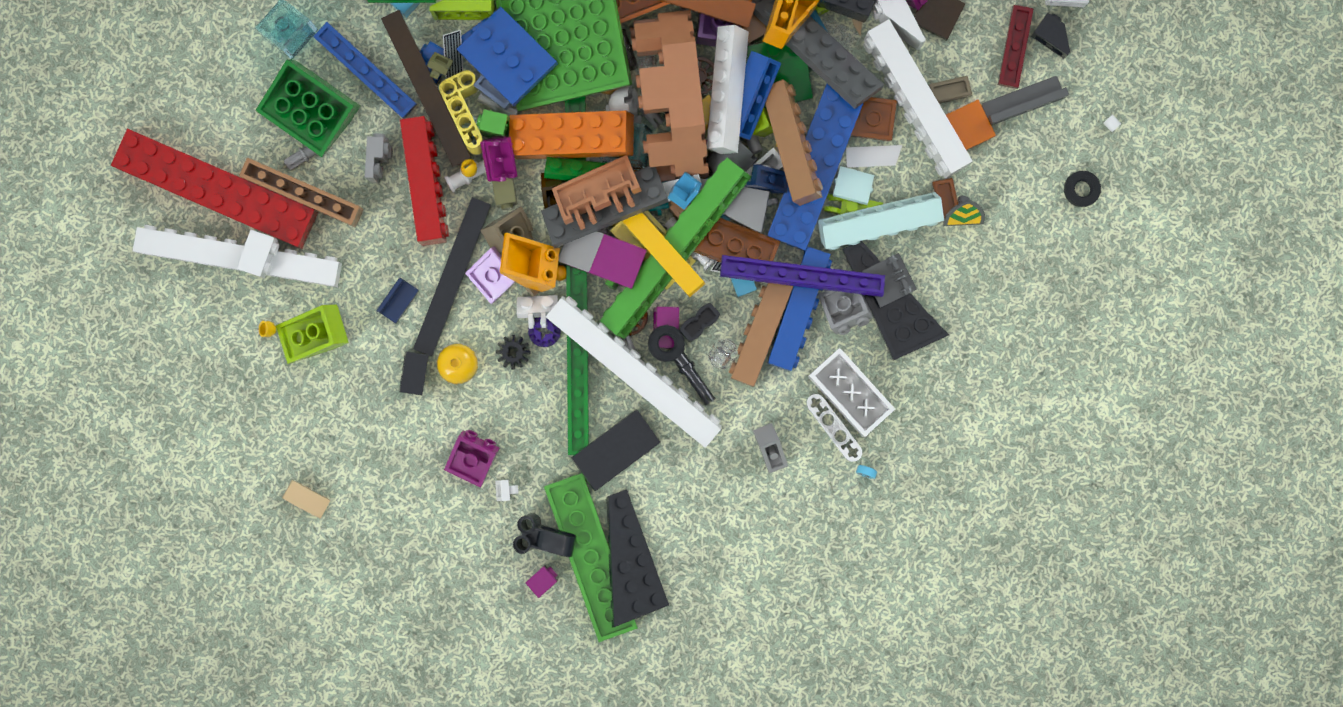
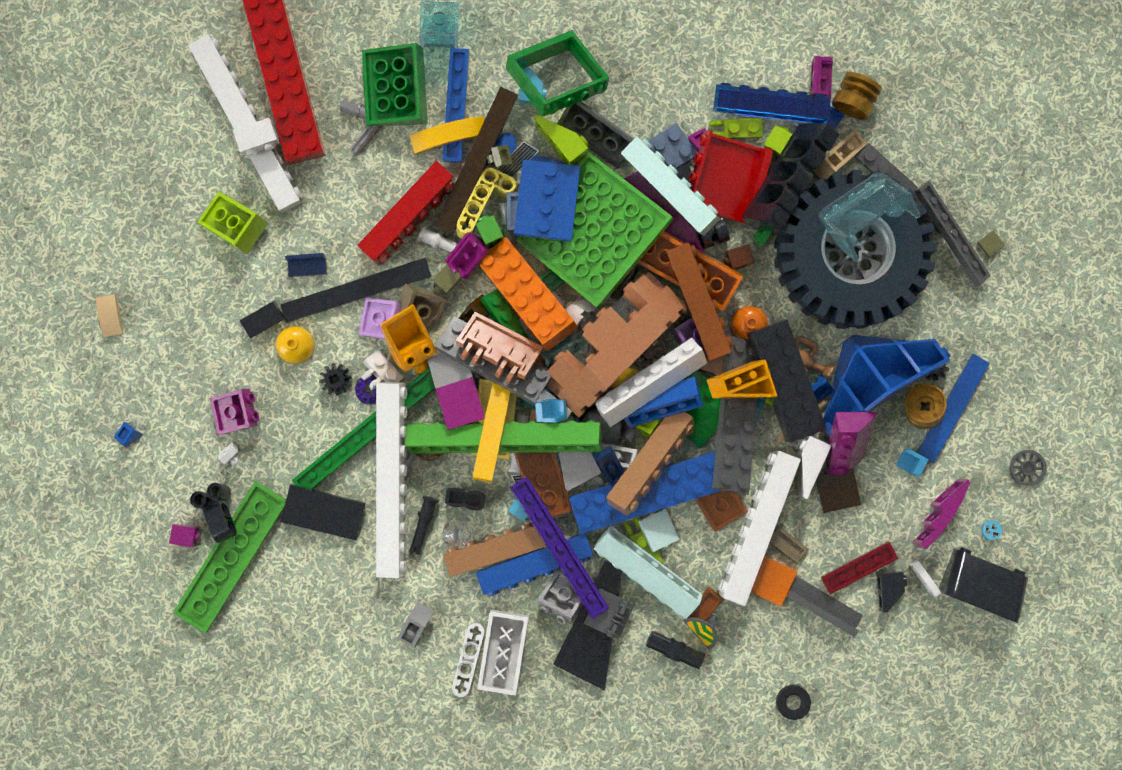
camera: 50 degrees right, 0 degrees up
(267, 329) = (210, 187): yellow hinge -> none
(301, 192) = (328, 131): medium nougat brick -> none
(330, 170) = (363, 139): none -> light grey axle
(377, 151) = (402, 161): light grey plate -> none
(383, 96) = (446, 134): none -> yellow slope
(420, 563) = (129, 435): none -> blue slope
(471, 170) = (441, 241): yellow hinge -> none
(632, 572) = (244, 595): black wing -> none
(653, 343) = (429, 498): black tyre -> none
(666, 316) = (442, 476): magenta hinge -> none
(866, 471) = (454, 710): medium azure tile -> none
(872, 156) = (692, 526): white sticker -> none
(962, 250) = (675, 650): none -> black piece
(1112, 123) = (860, 685): white piece -> none

